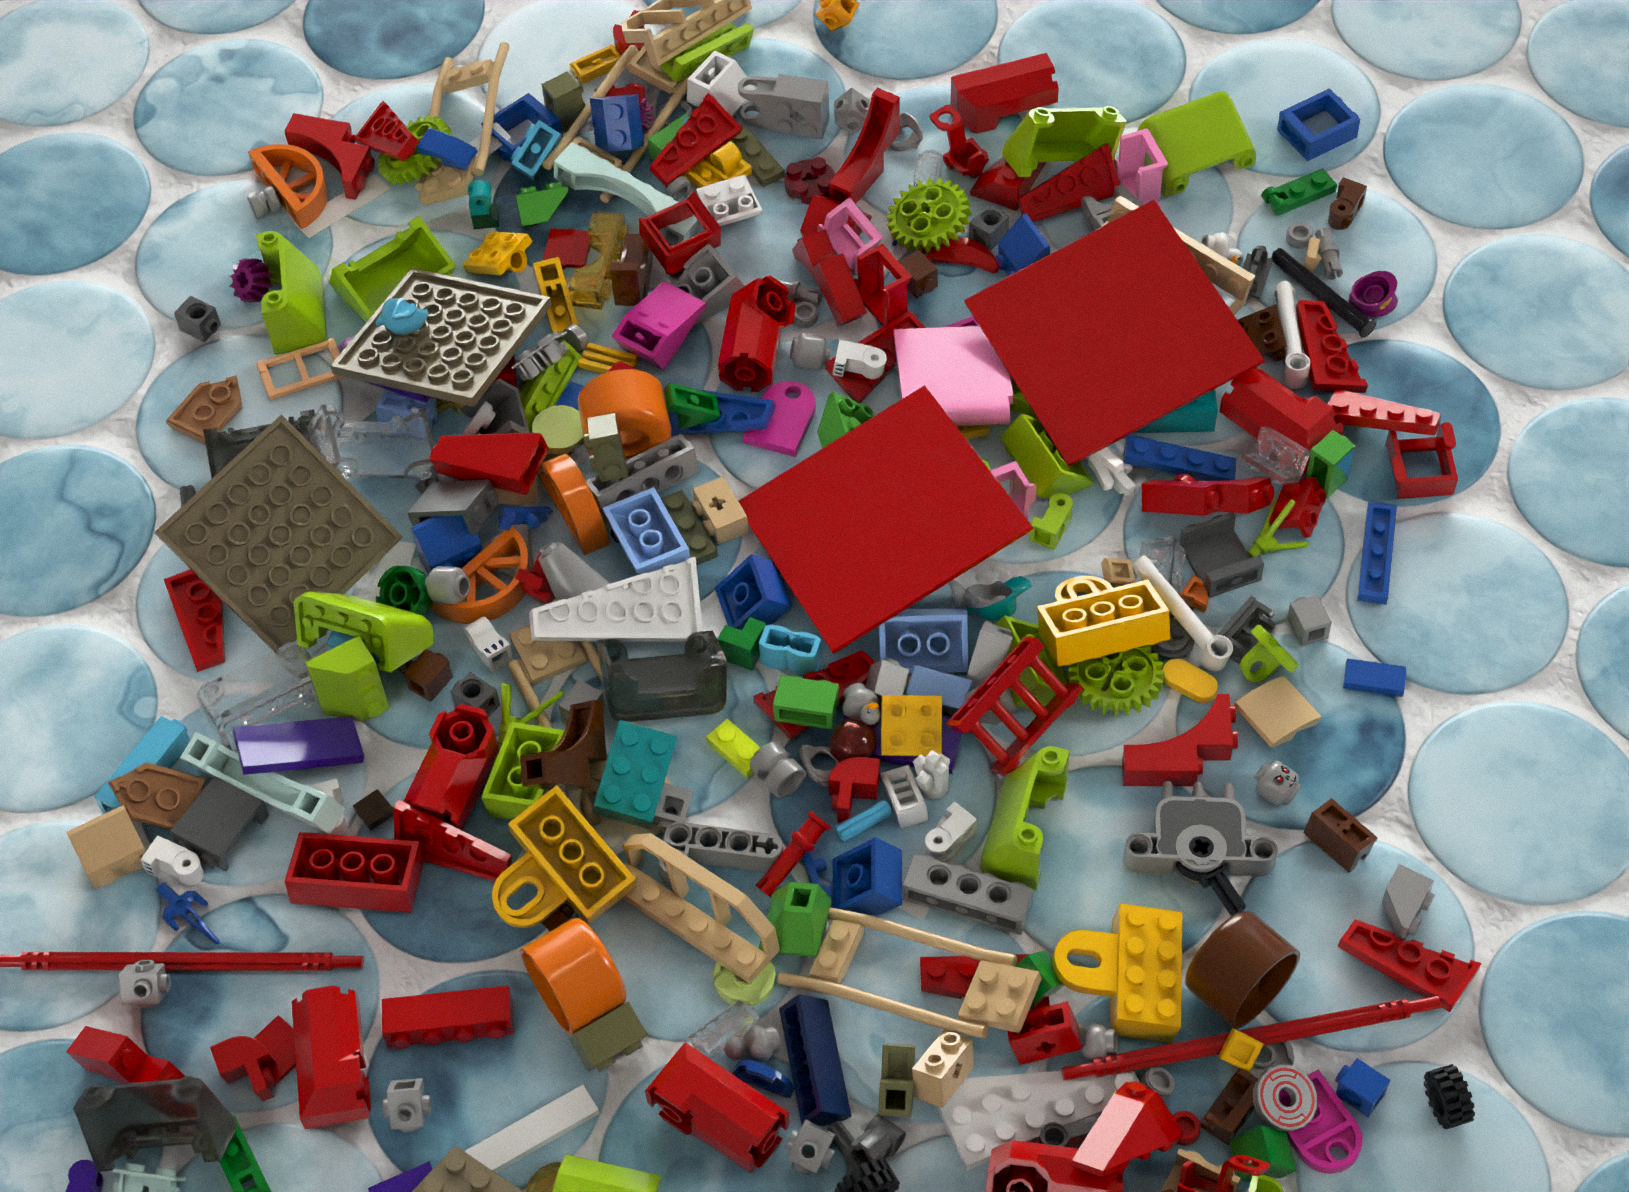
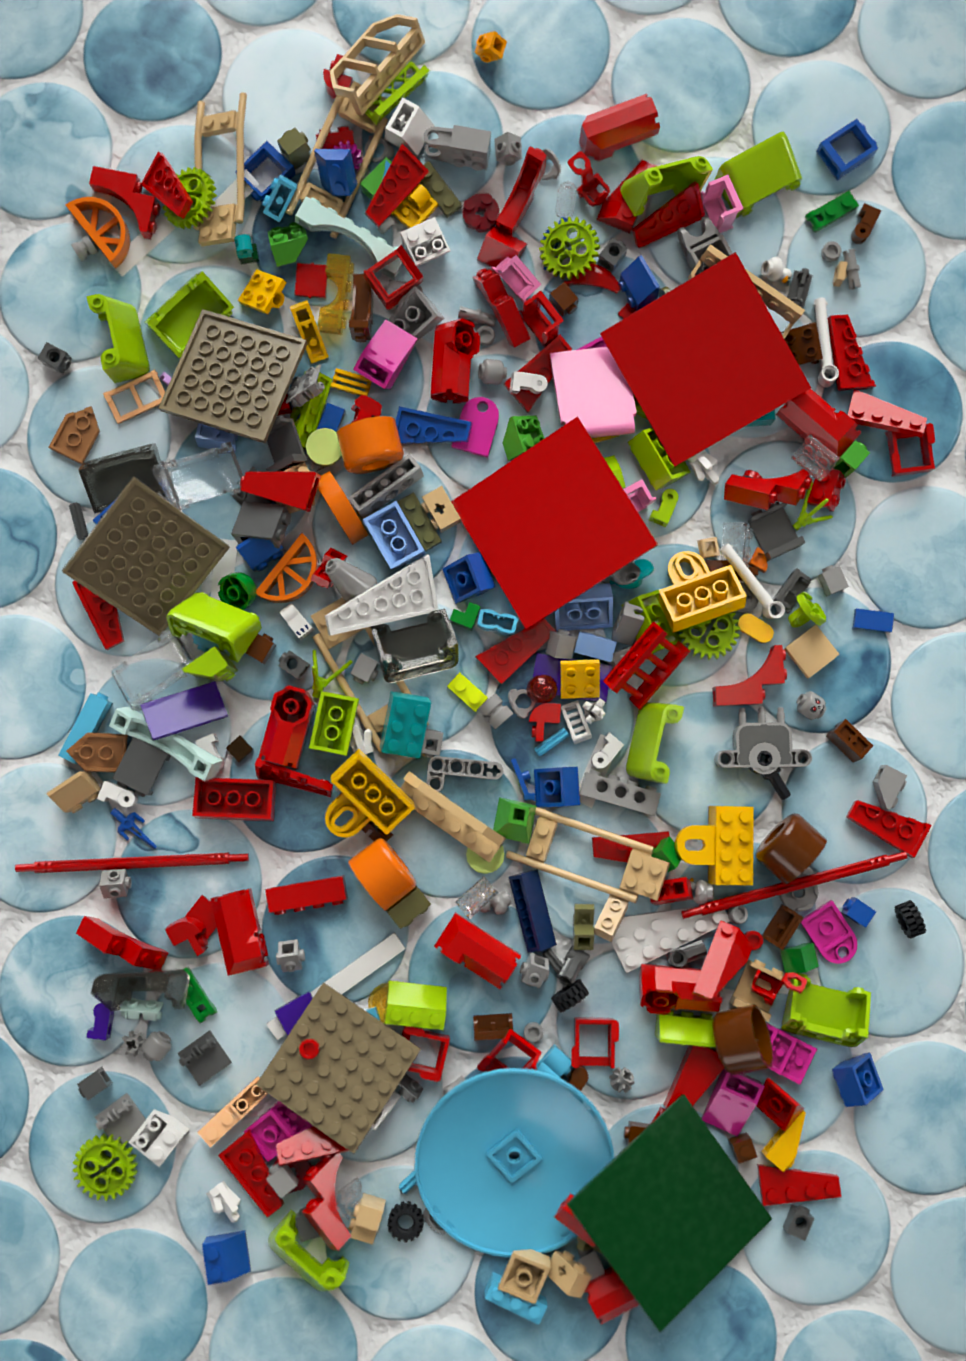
camera: 10 degrees left, 30 degrees up
(251, 280) = (88, 325): magenta gear -> none
(401, 316) = (202, 367): medium azure piece -> none
(447, 585) = (265, 588): light grey head -> none
(448, 148) = (214, 205): blue slope -> none
(481, 419) = (266, 451): light grey tile -> none
(524, 515) = (312, 522): blue piece -> none
(569, 760) = (362, 729): reddish brown arch -> none
(576, 337) = (327, 365): light grey tile -> none
(595, 64) = (316, 104): yellow tile -> none
(607, 447) = (361, 478): olive brick -> none
(691, 405) = (415, 428): green slope -> none
(764, 1077) = (501, 923): blue tile -> none
(802, 842) = (514, 767): red pin -> none
(806, 702) = (511, 664): bright green brick -> none
(861, 704) = (545, 664): light grey animal -> none
(1178, 459) = (748, 456): blue plate -> none
(1240, 1050) = (788, 896): yellow tile -> none
(1299, 1088) = (822, 930): light grey tile -> none
(1323, 292) = (846, 303): black axle -> none
(1374, 294) = (882, 306): magenta piece -> none
(1377, 553) = (878, 524): blue plate -> none

